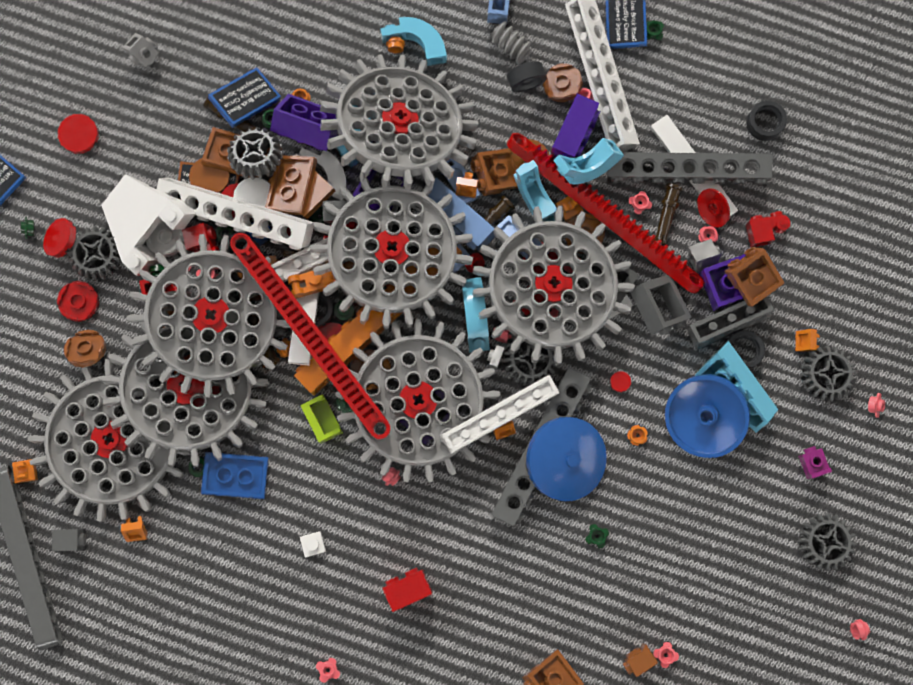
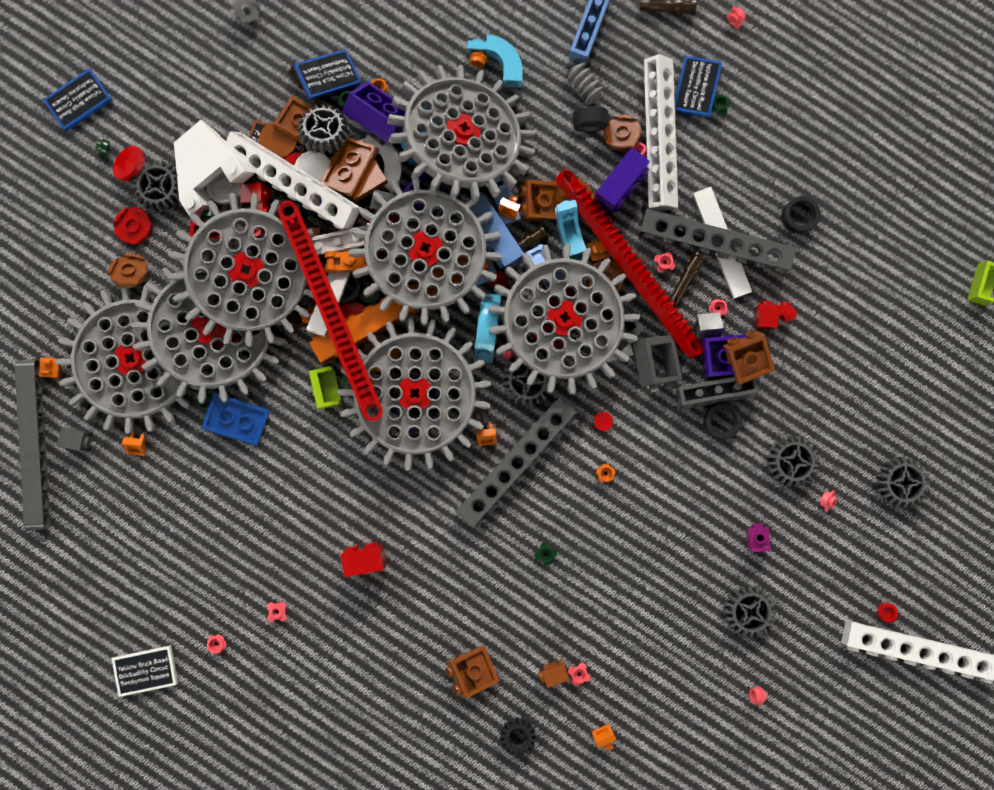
camera: 10 degrees right, 5 degrees up
(78, 133) = (168, 70): red tile -> none
(312, 544) = (290, 497): white plate -> none
(391, 477) = (375, 455): coral plate -> none
(495, 356) = (495, 370): white plate -> none
(499, 414) = (485, 424): white tile -> none
(566, 458) = (535, 479): blue dish -> none
(591, 164) = (627, 216): medium azure arch -> none
(707, 416) = (672, 472): blue dish -> none
(713, 207) = (729, 284): red dish -> none
(730, 366) = (706, 453): medium azure wedge -> none
(806, 340) = (781, 426): orange tile -> none

